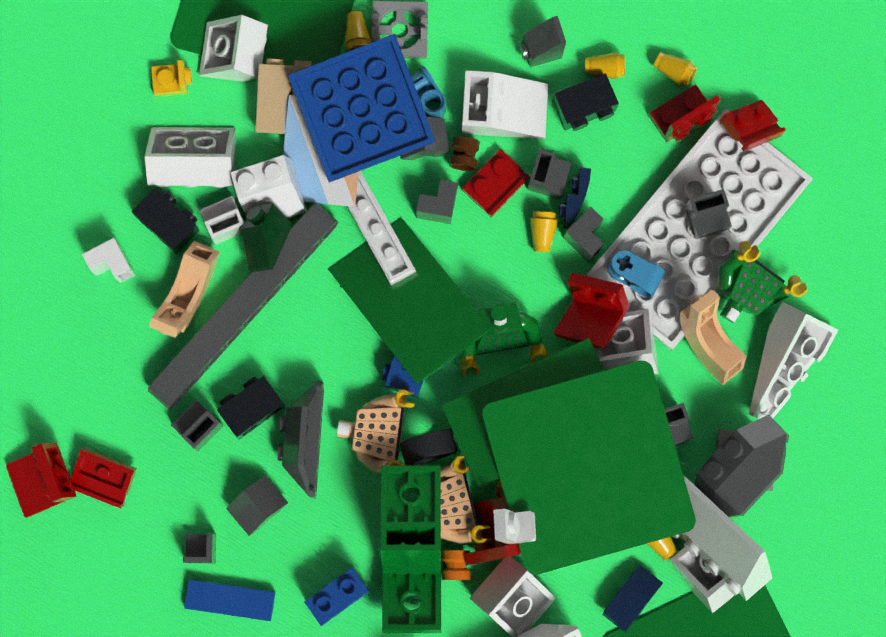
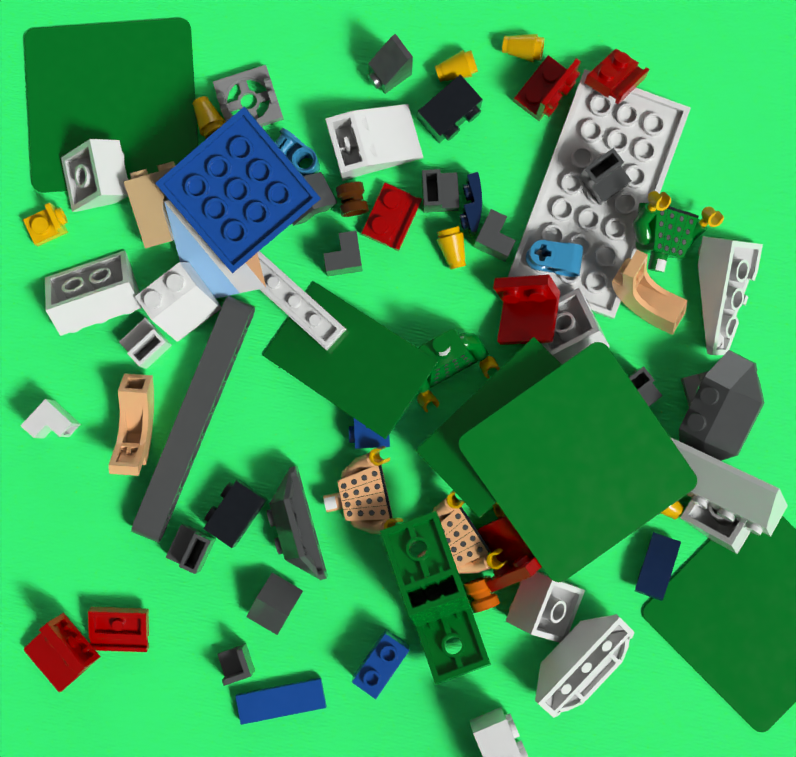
camera: 15 degrees left, 5 degrees up
(165, 220) = (90, 363): black brick -> none
(264, 236) = (189, 346): dark green slope -> none
(428, 447) = (417, 493): black tyre -> none
(514, 527) = (528, 546): white bracket -> none

